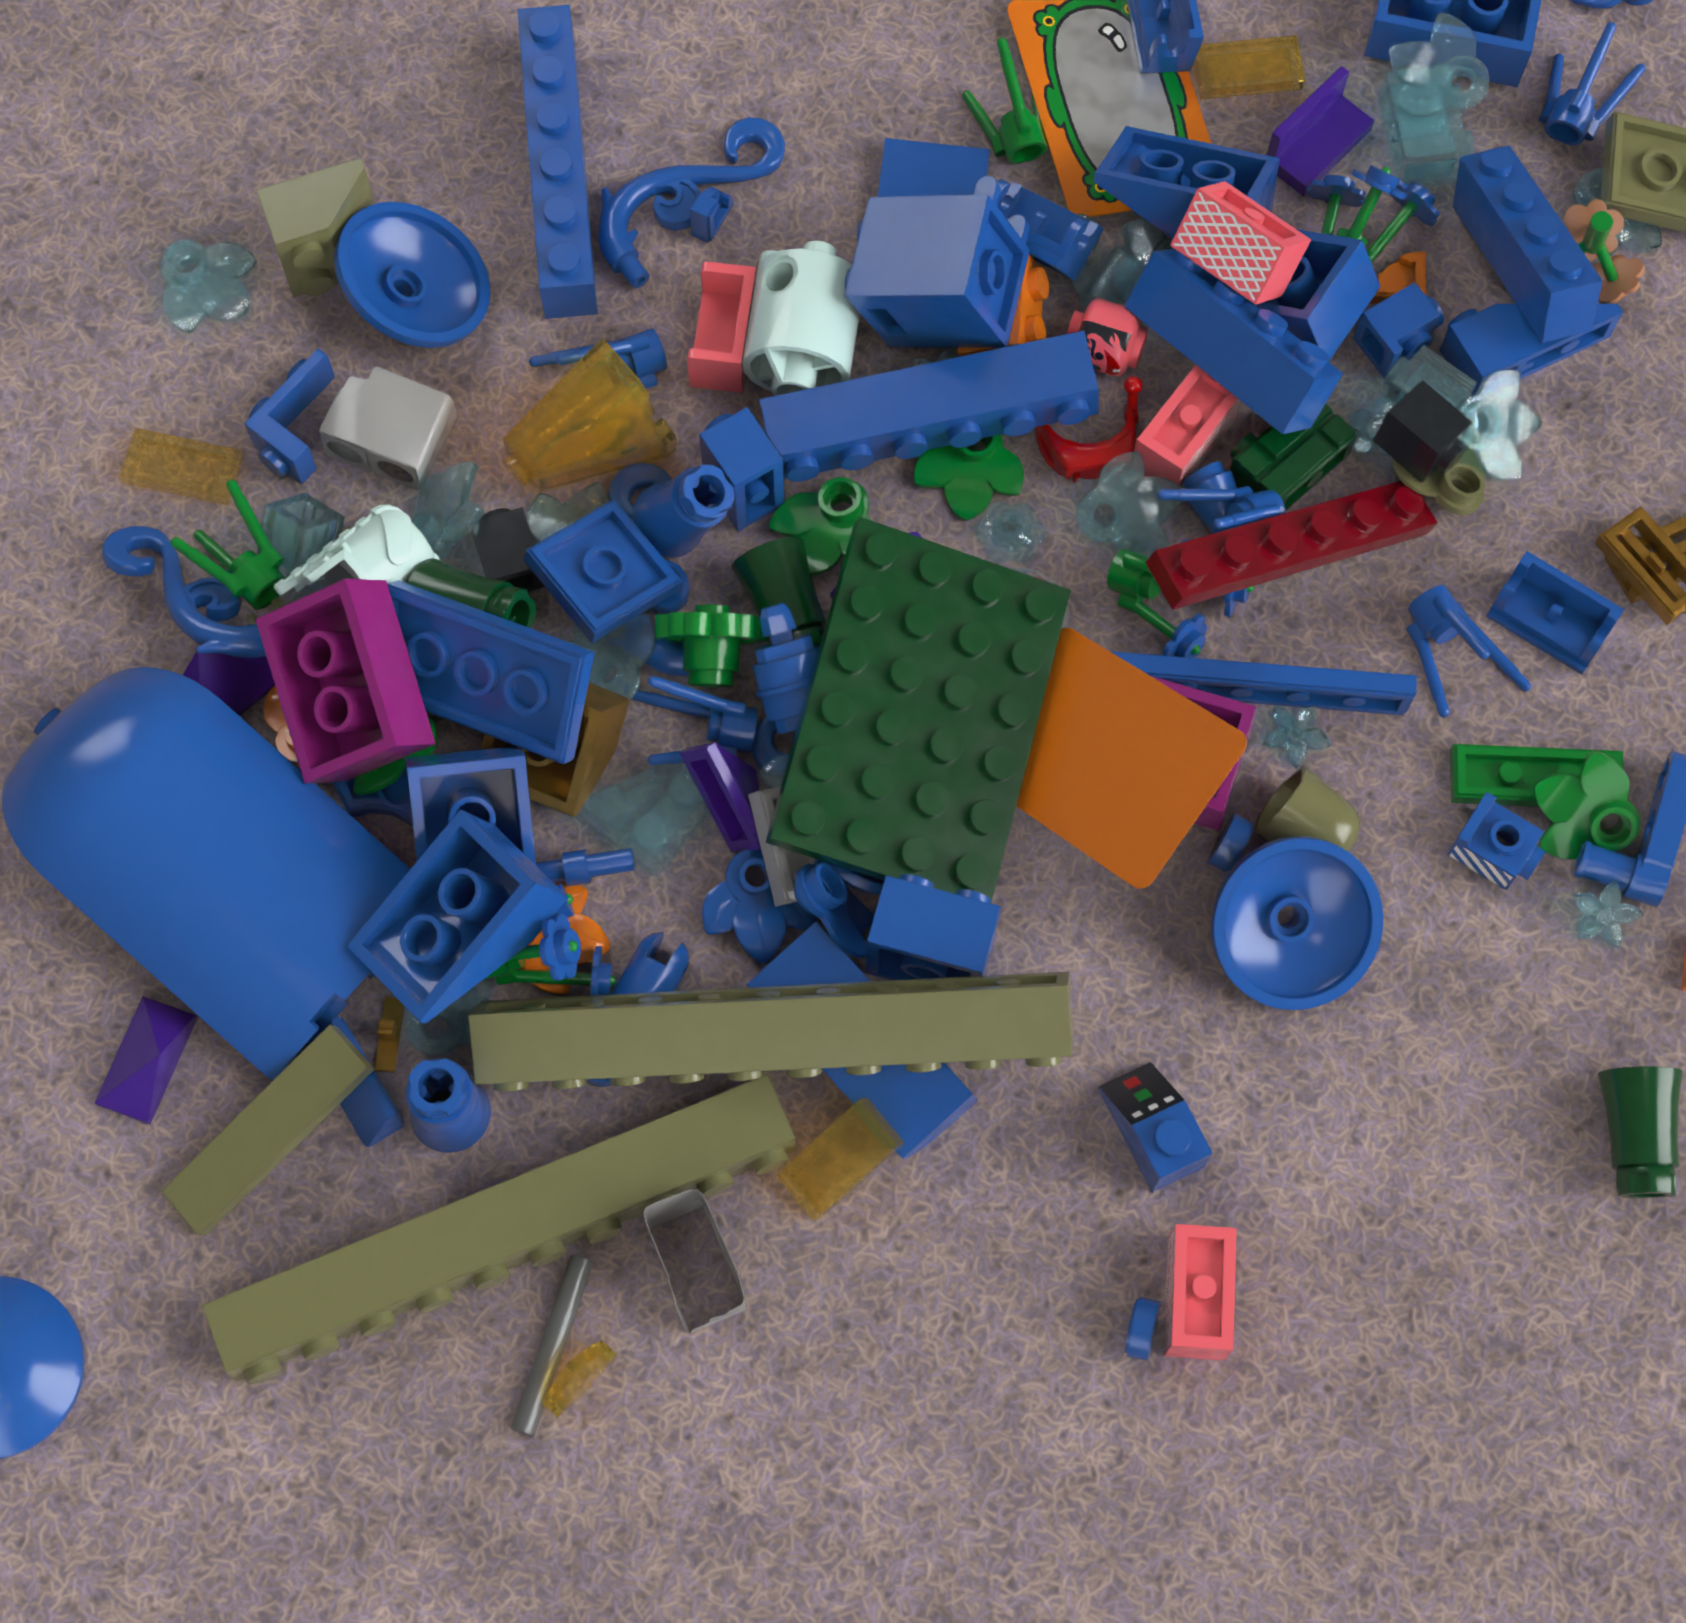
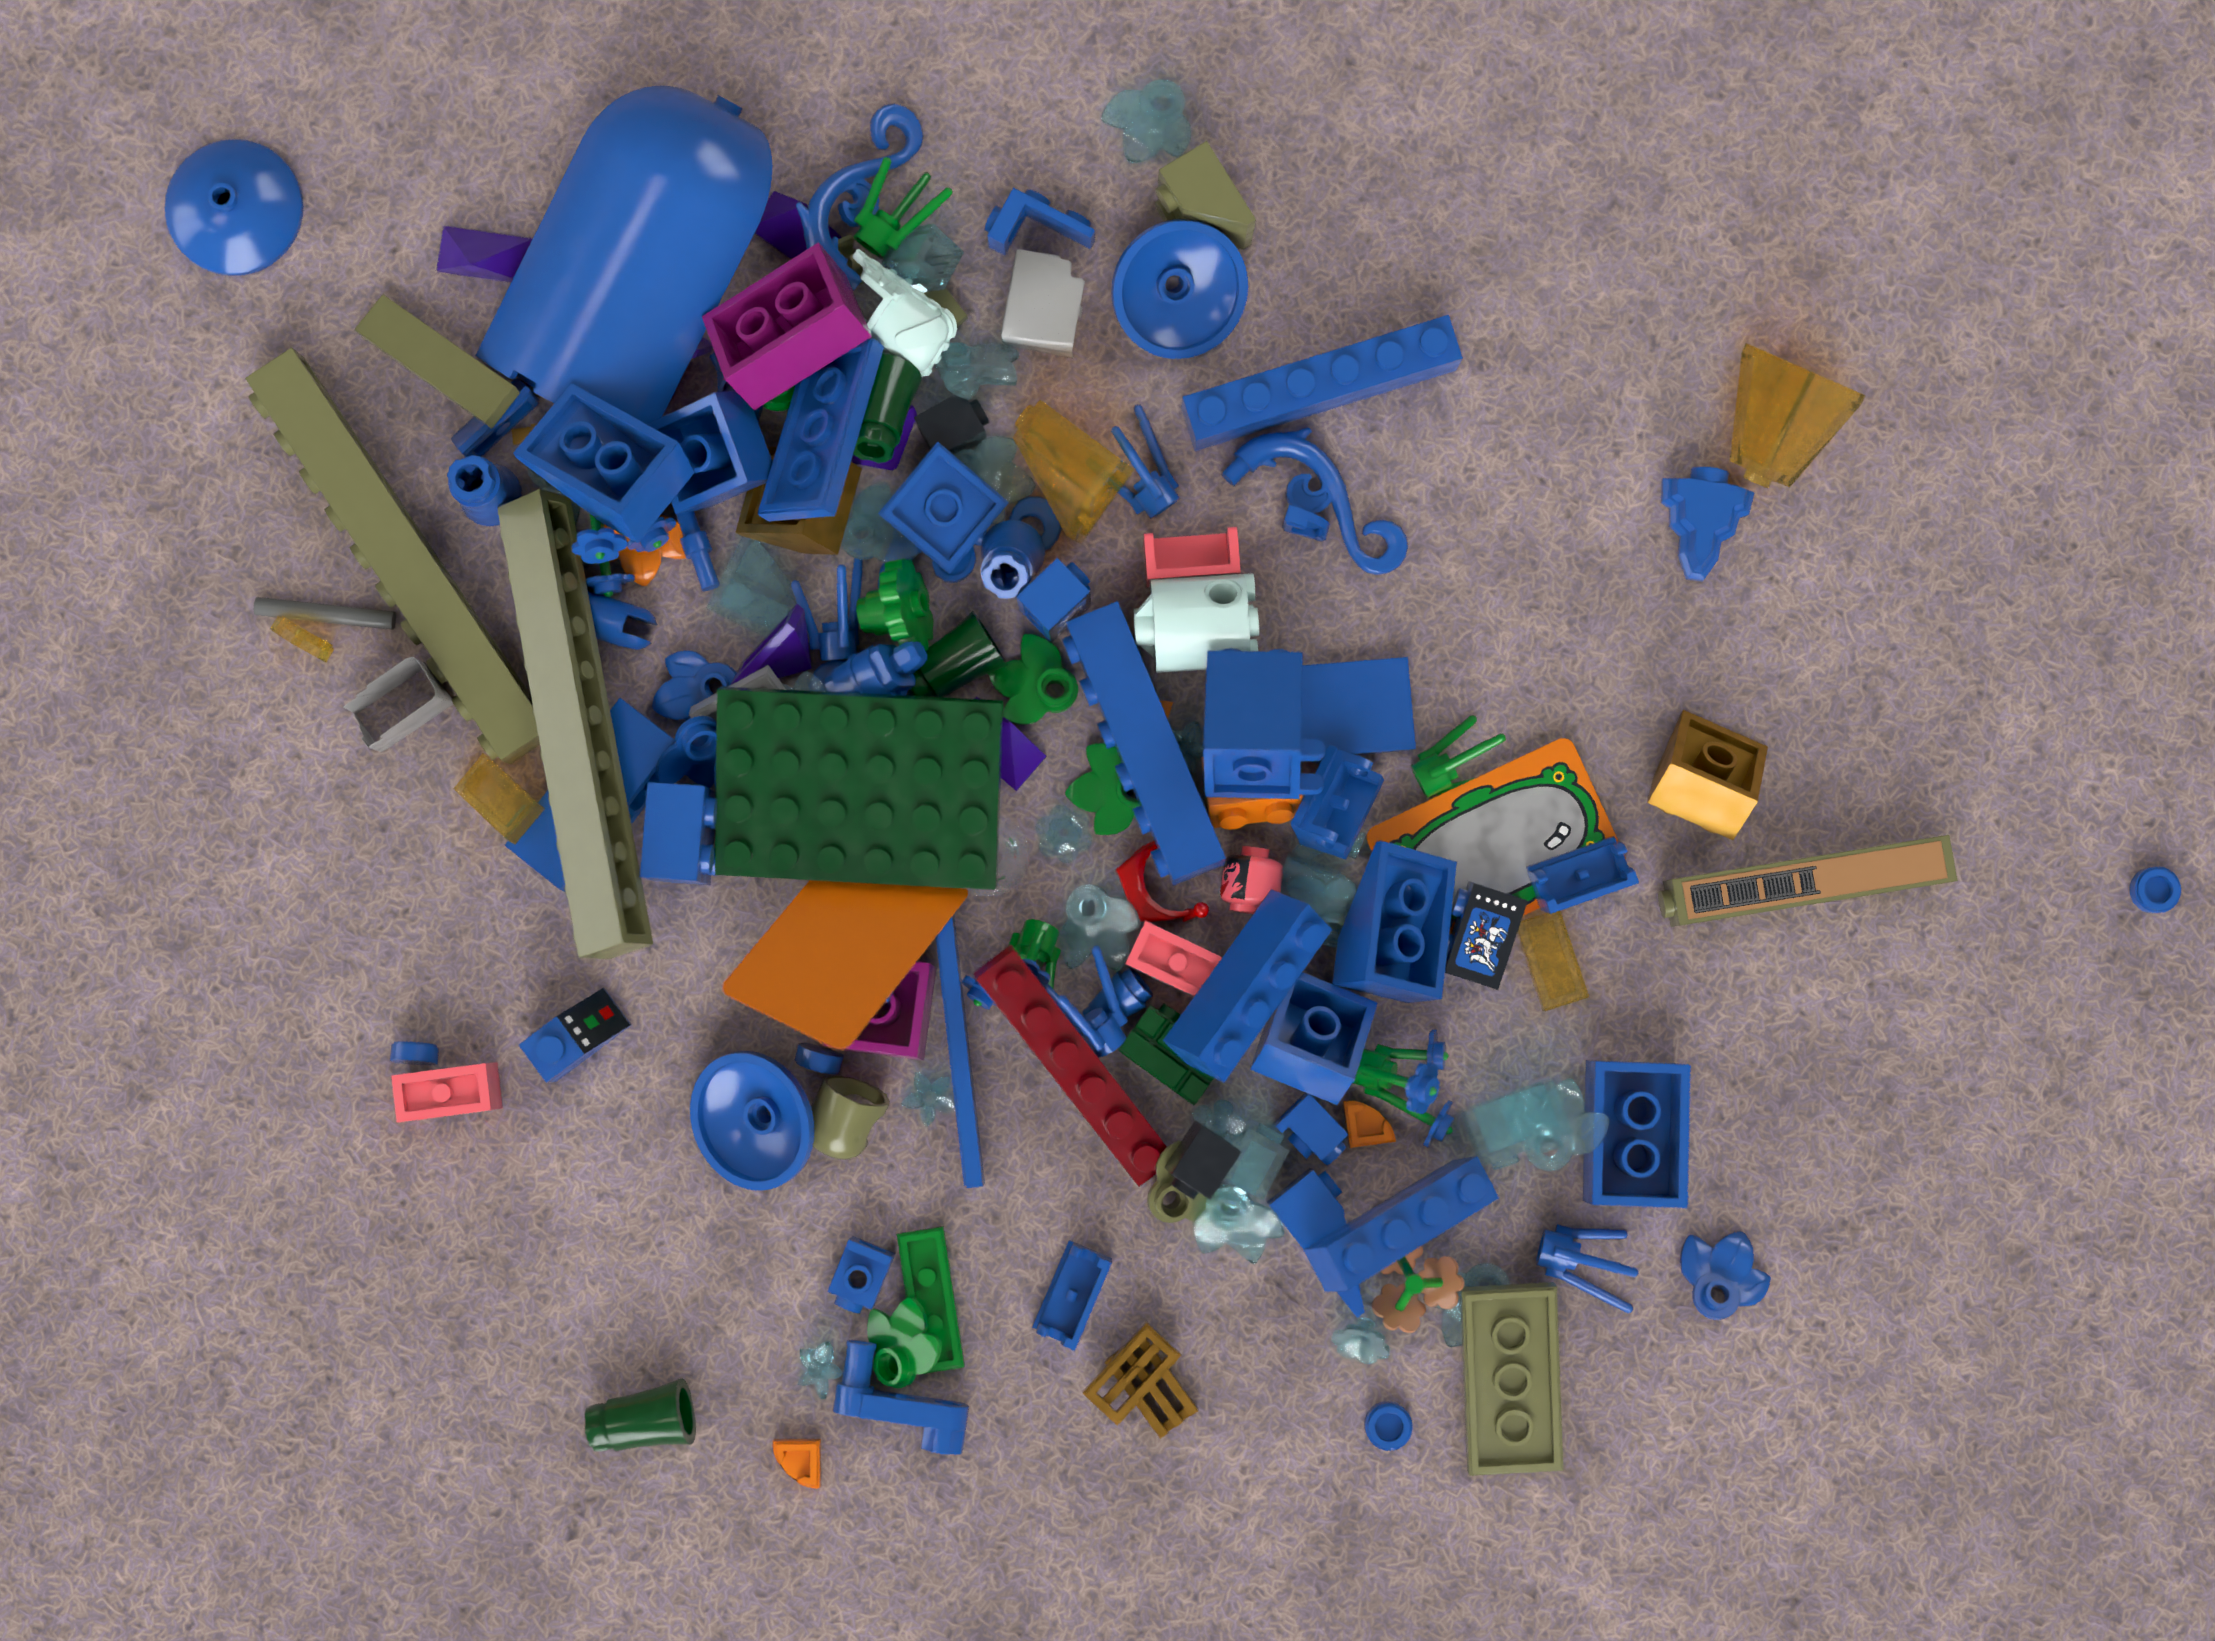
camera: 80 degrees right, 15 degrees up
(180, 466) = (981, 147): clear yellow tile -> none
(1211, 109) = (1483, 934): none -> black brick
(1240, 242) = (1323, 974): coral panel -> none
(1318, 134) = (1489, 1032): dark purple panel -> none
(1443, 618) = (1051, 1201): blue plant -> none
(1646, 325) = (1361, 1342): none -> clear light blue plant

